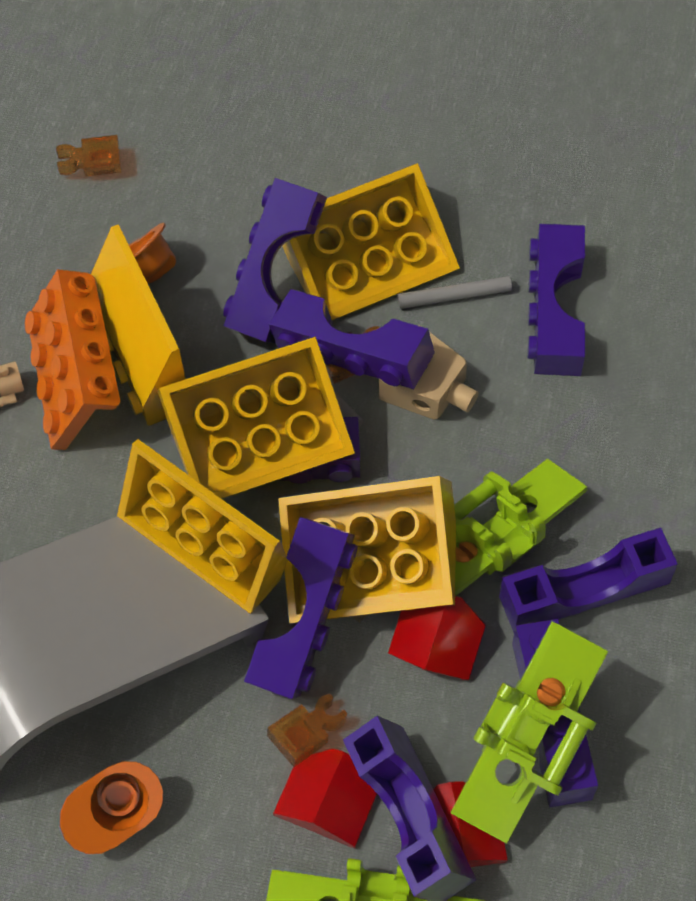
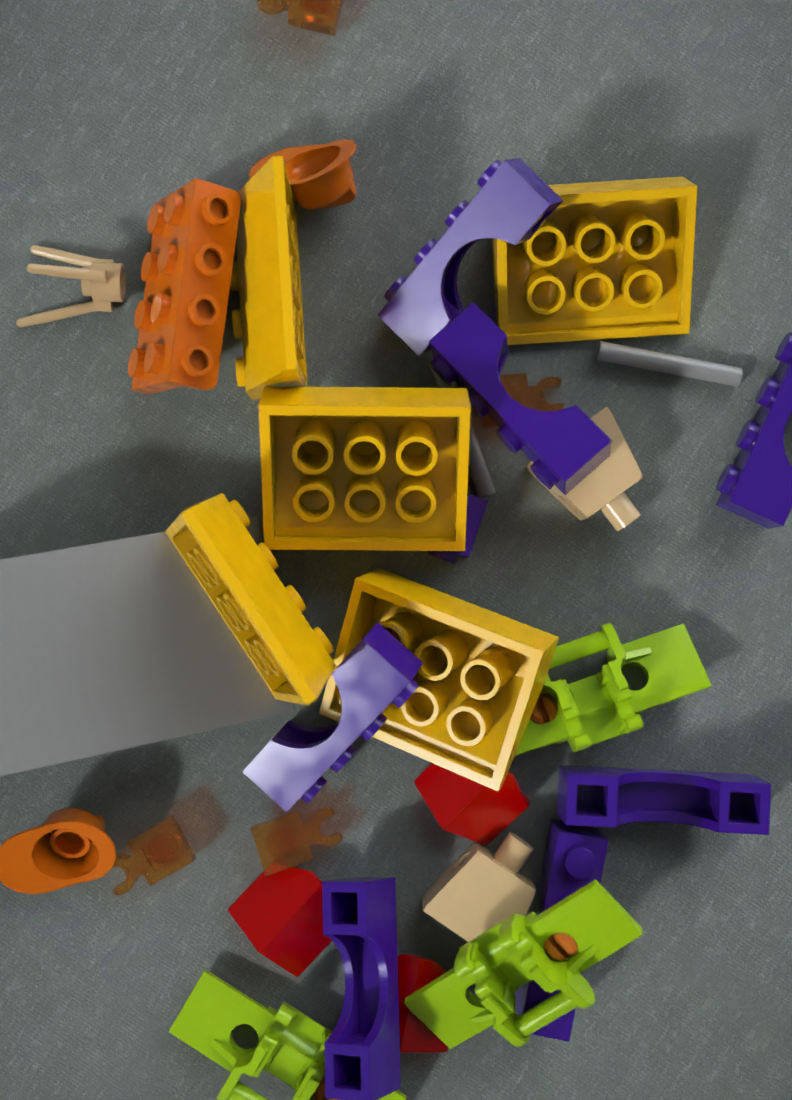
camera: 15 degrees right, 25 degrees up
(195, 785) = (154, 854): none -> clear orange plate
(469, 705) = (482, 888): none -> tan torso

